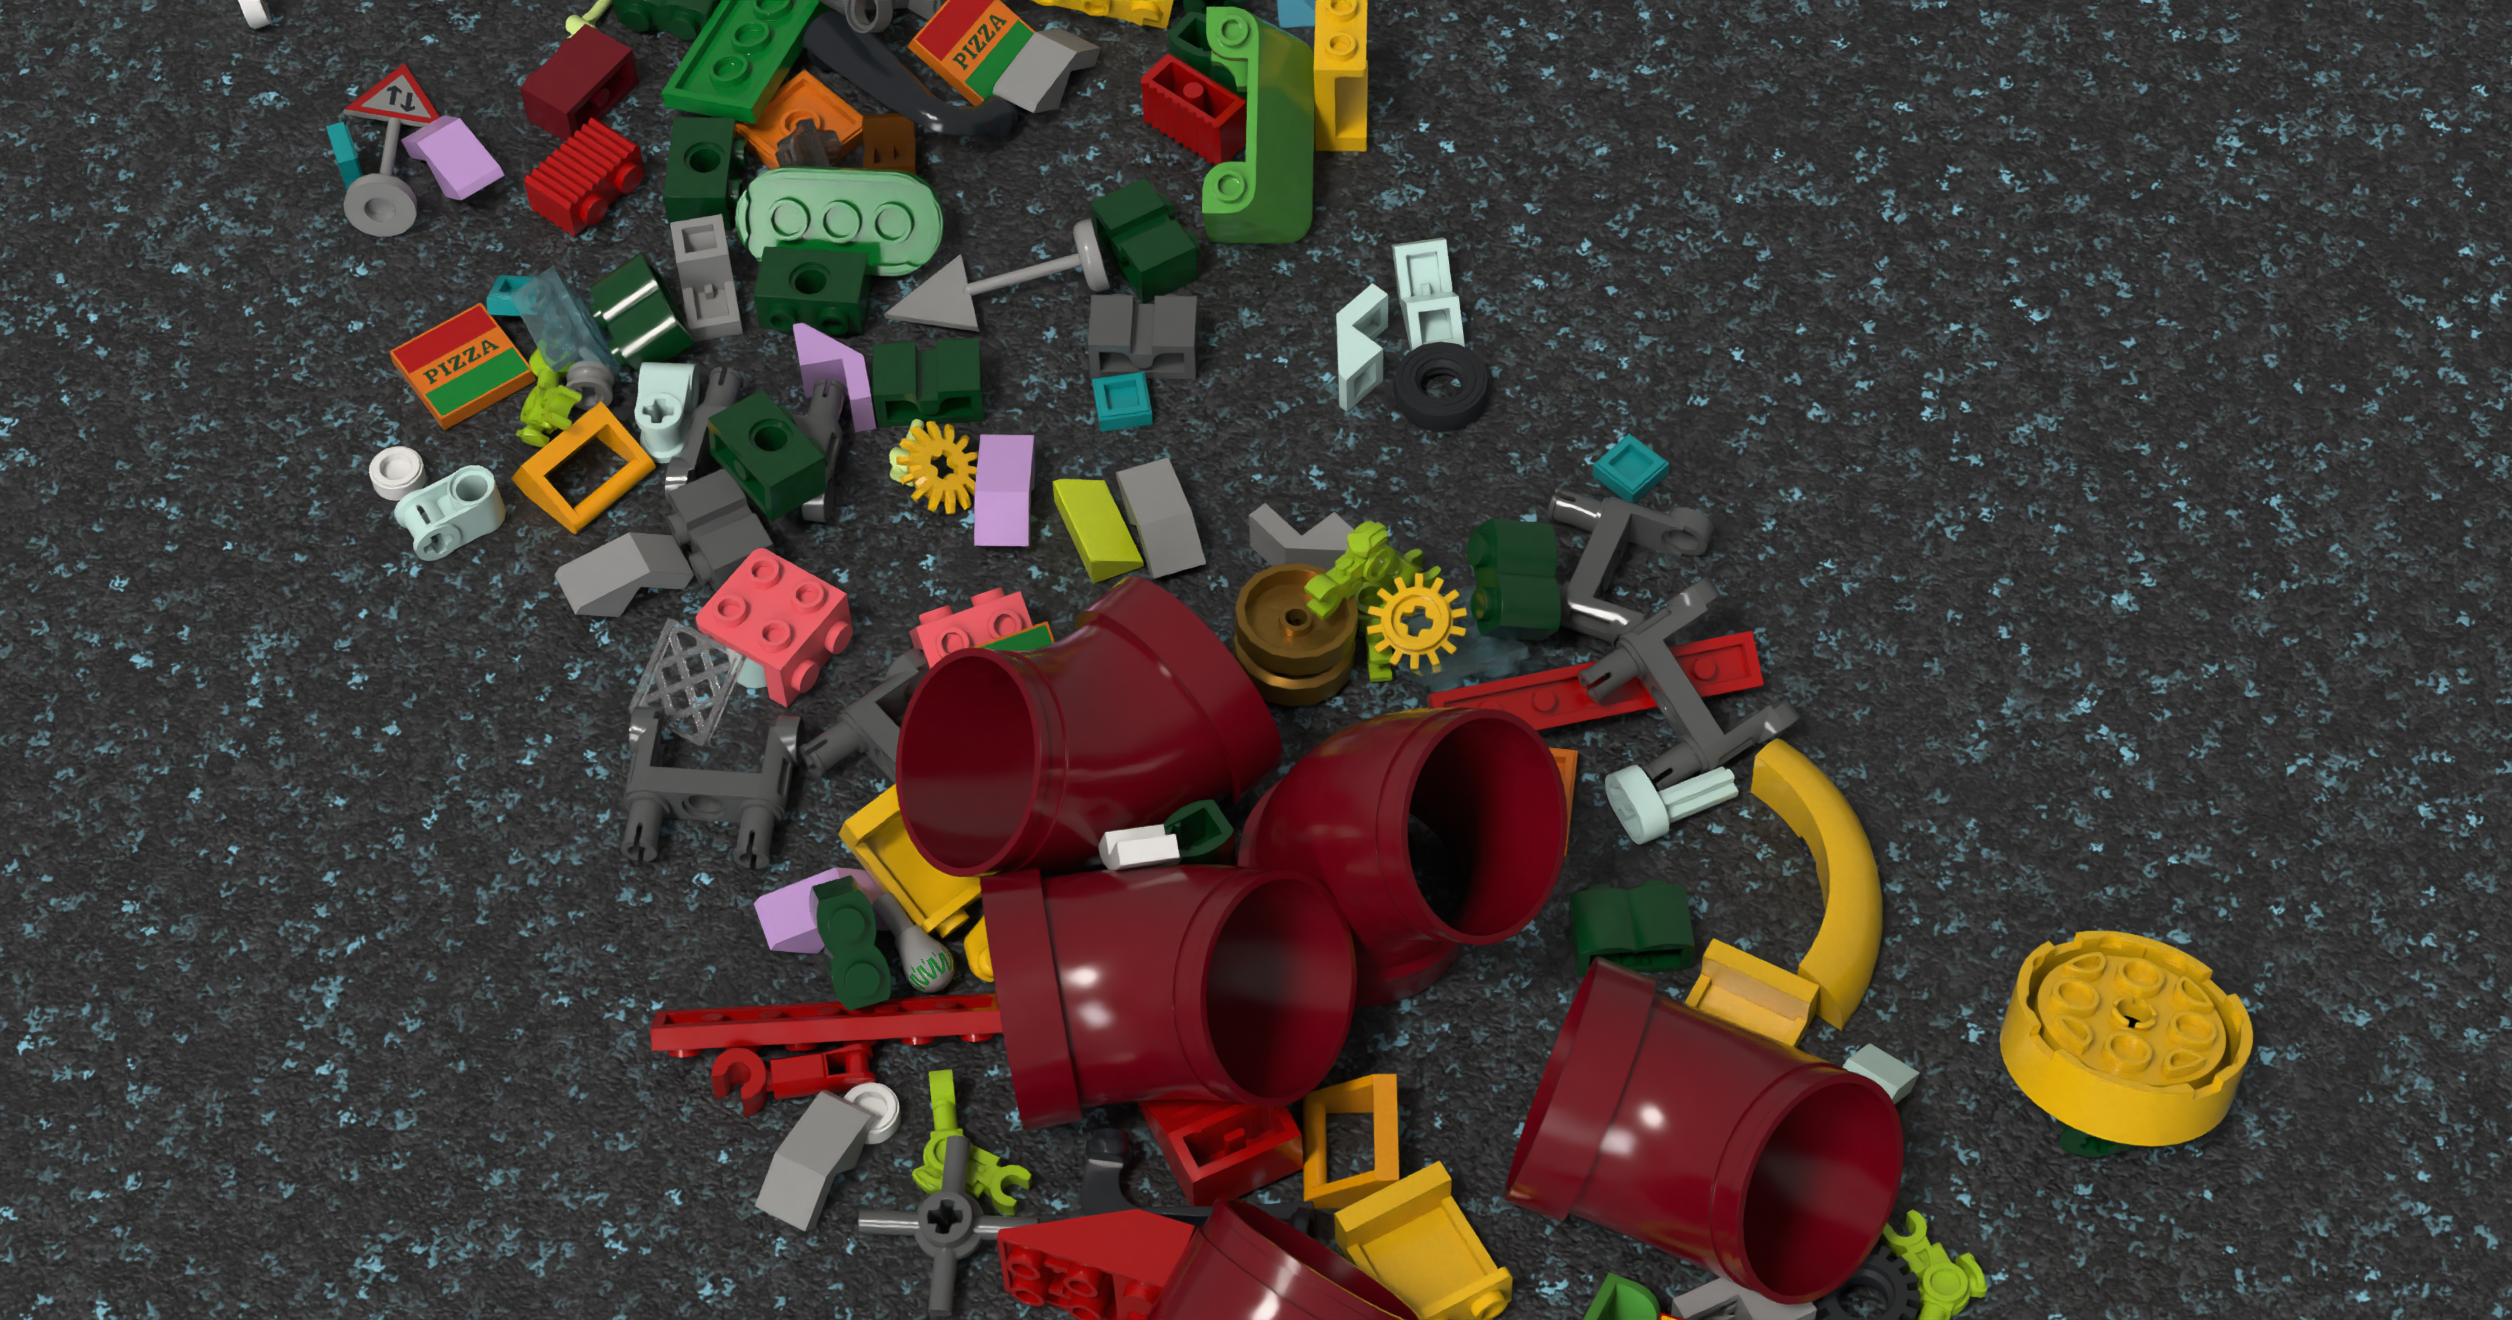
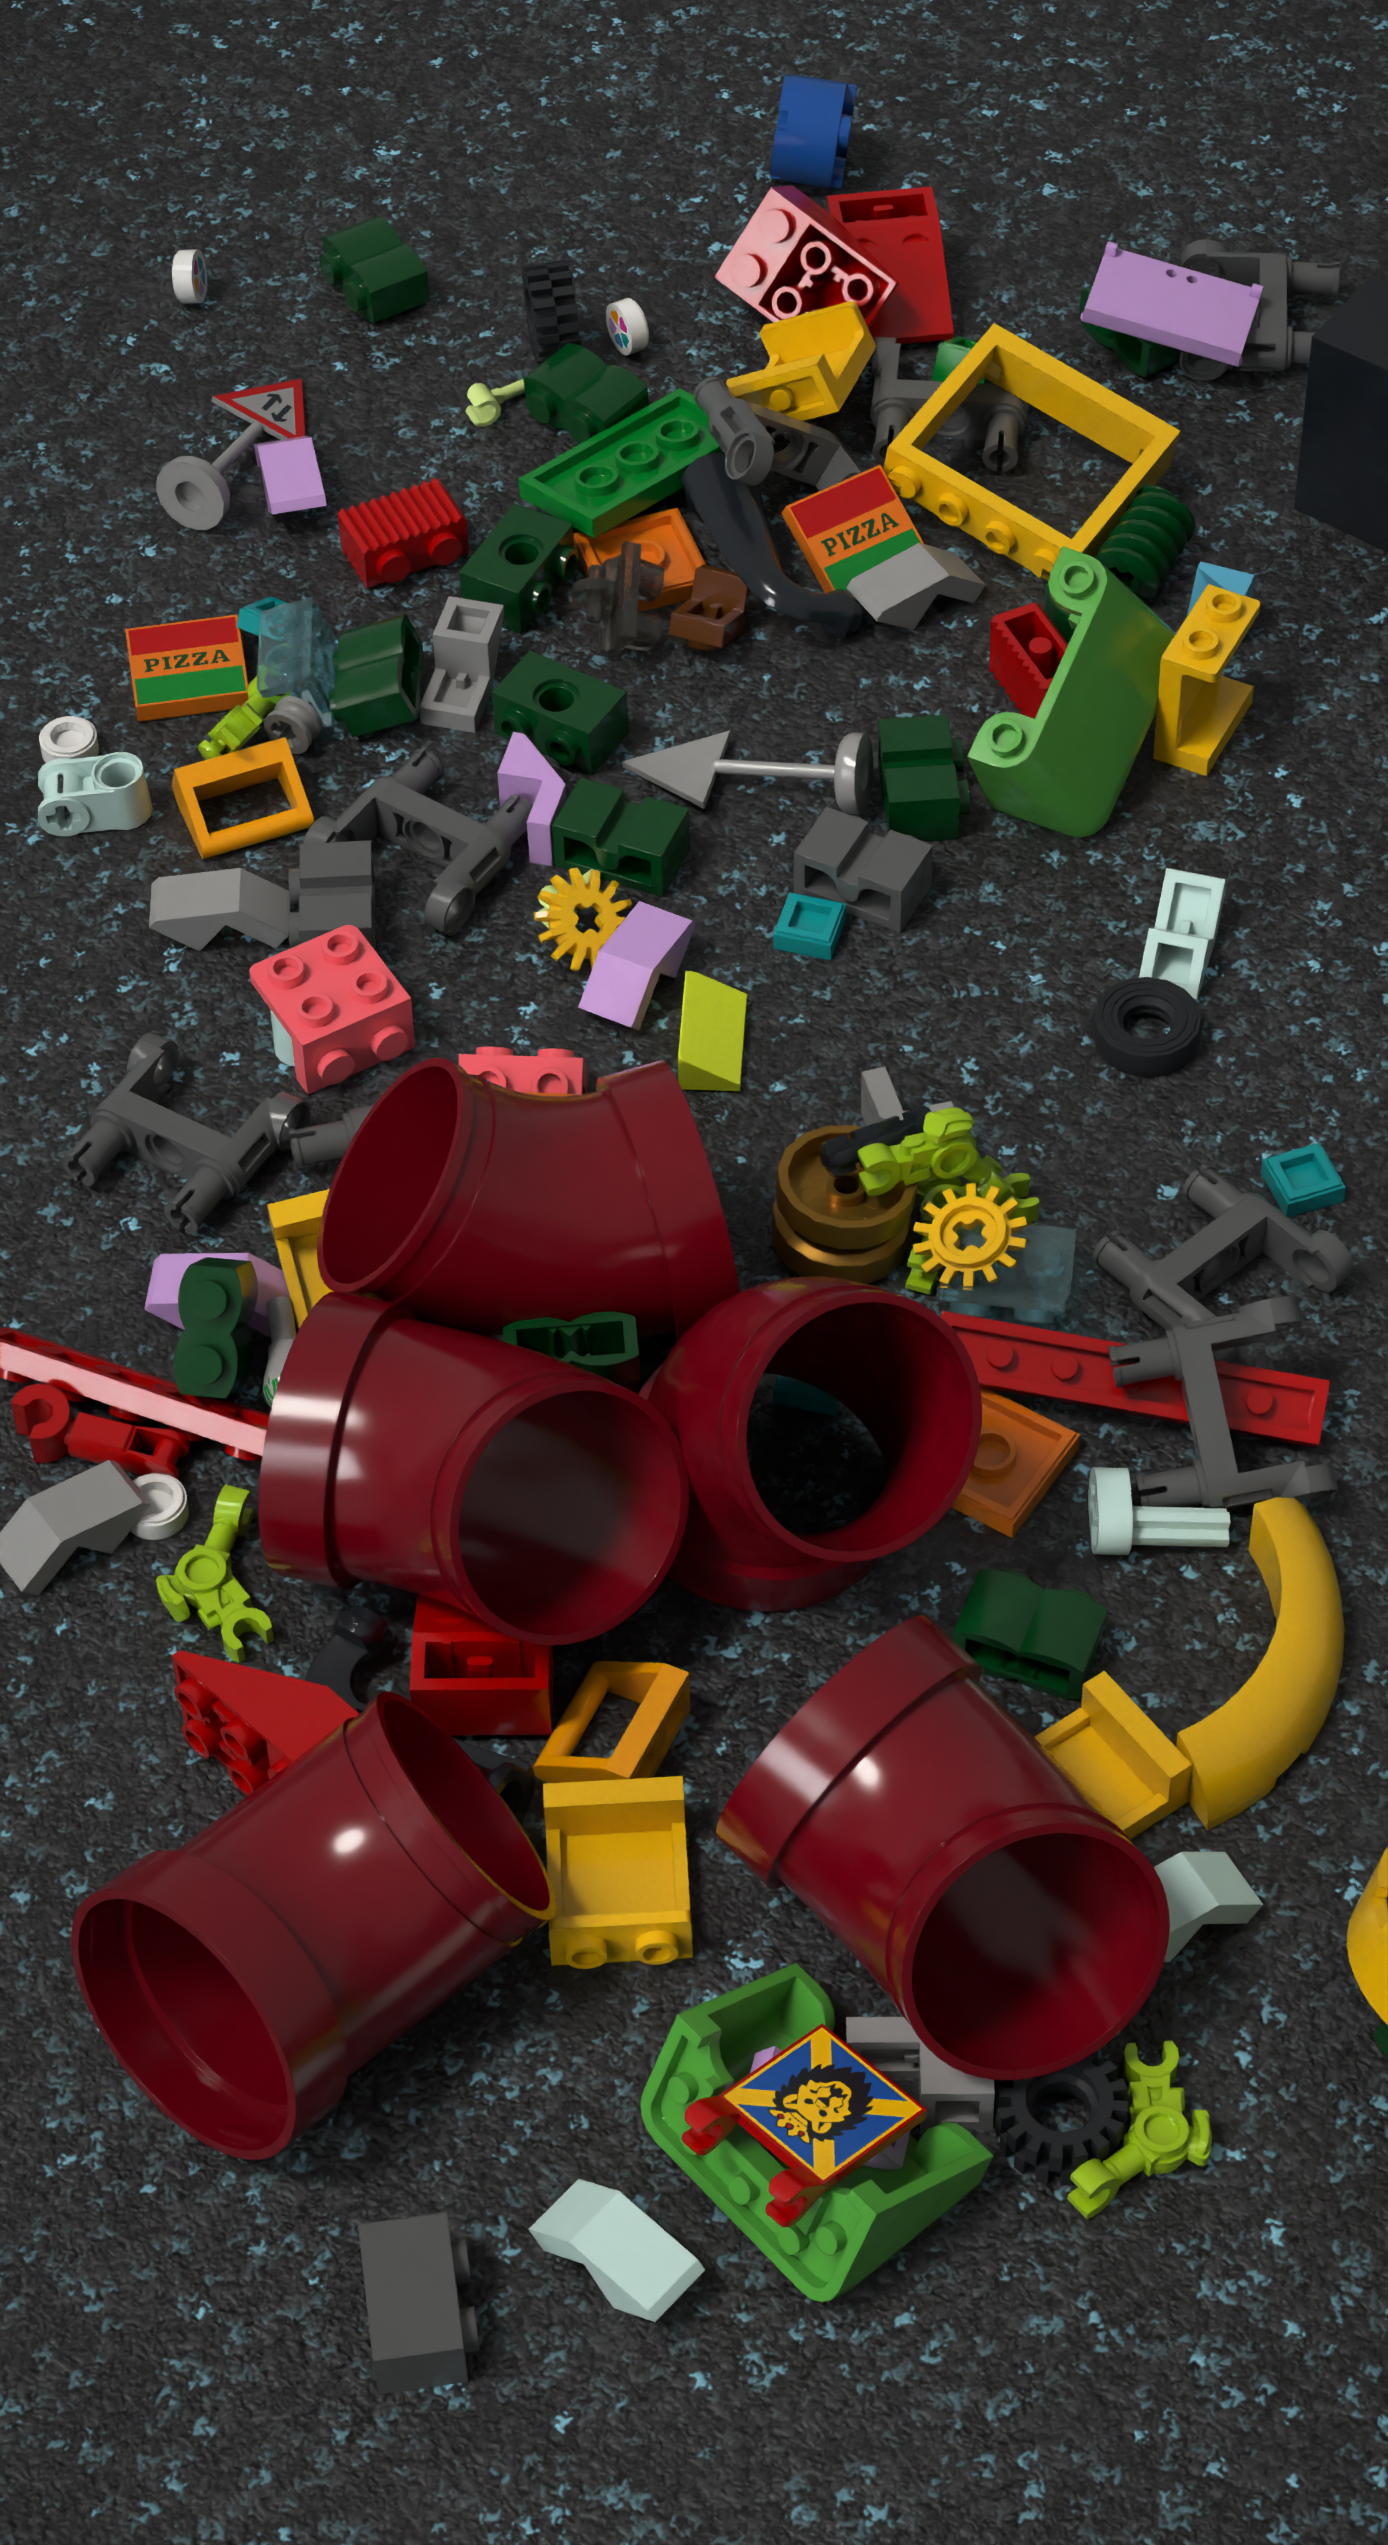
camera: 25 degrees right, 5 degrees down
(344, 153) = (190, 432): teal tile -> none
(579, 82) = (454, 442): dark red brick -> none
(665, 406) = (351, 764): light aqua piece -> none
(721, 696) = (241, 1051): clear window -> none
(768, 454) = (410, 839): dark green brick -> none
(844, 210) = (660, 657): tile -> none
(935, 1214) = (149, 1636): dark grey bar -> none
(1138, 847) = (513, 1323): white slope -> none
(1162, 517) = (777, 1047): light grey slope -> none
(1316, 560) = (841, 1153): none -> black axle
(1357, 354) = (1069, 964): light aqua slope -> none
(1515, 579) = (1093, 1230): dark green brick -> none

